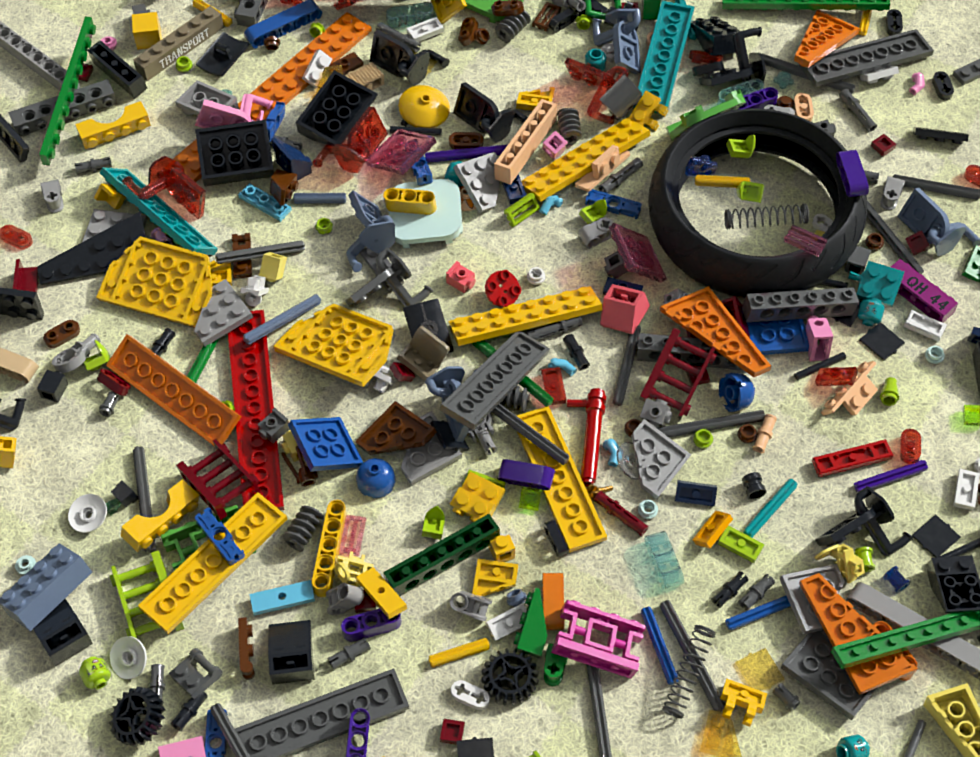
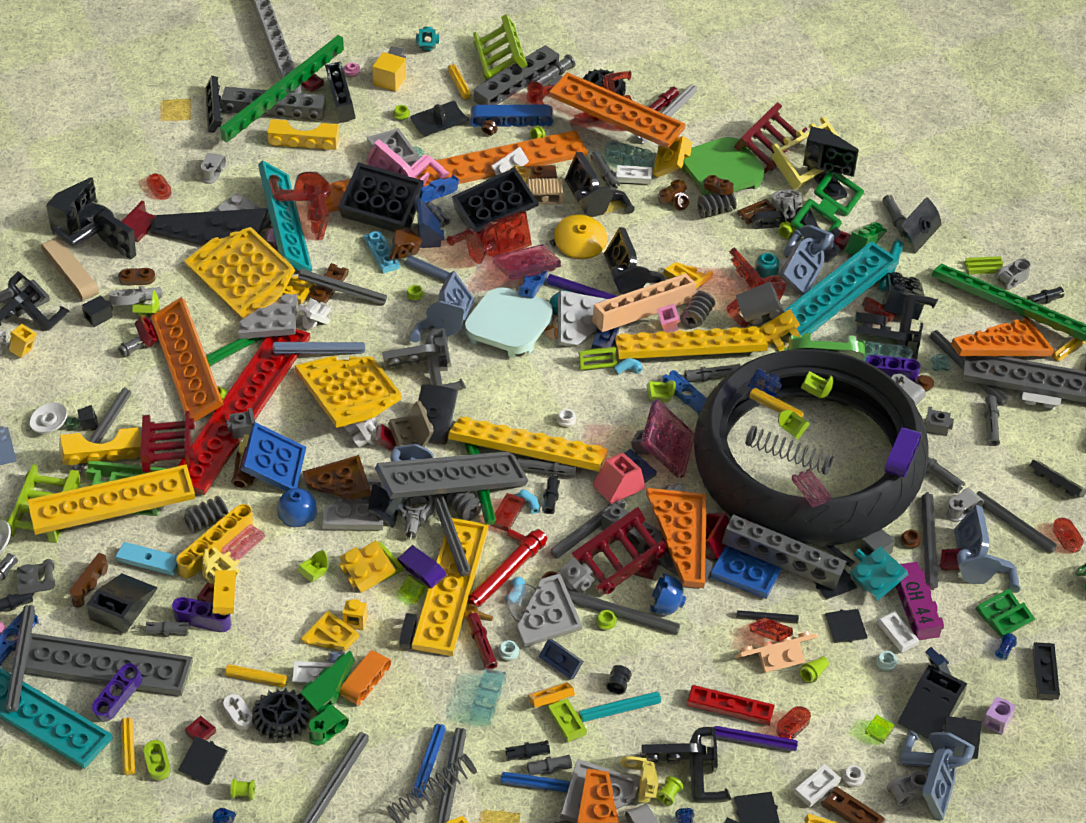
camera: 30 degrees right, 10 degrees down
(93, 165) = (258, 157): dark grey pin -> none
(108, 193) = (254, 184): yellow panel -> none
(161, 344) = (215, 317): black pin -> none
(178, 43) = (409, 93): dark tan brick -> none
(226, 546) = (128, 491): blue piece -> none
(272, 266) = (343, 303): light yellow brick -> none
(343, 598) = (193, 583): light grey piece -> none
(410, 201) = (498, 303): yellow beam -> none
(427, 131) = (561, 254): black bar -> none
(442, 555) = (297, 592): dark green brick -> none
(460, 277) = (497, 387): coral brick -> none
(466, 140) = (596, 280): reddish brown plate -> none
(472, 605) = (295, 644): light grey piece -> none
(496, 293) = (534, 411): red plate -> none
(594, 653) = (364, 734): dark pink fence -> none
(595, 233) = (642, 404): light grey piece -> none
(602, 168) = (699, 354): light nougat bracket -> none
(747, 433) = (650, 636): reddish brown plate -> none
(764, 433) = (665, 644): light nougat pin -> none
(805, 109) = (936, 397): light nougat plate -> none
(819, 330) = (781, 581): bright pink torso -> none
(871, 311) = (852, 593): teal head -> none
(883, 145) = (991, 461): dark red plate -> none
(919, 83) = (1077, 425): bright pink arm -> none

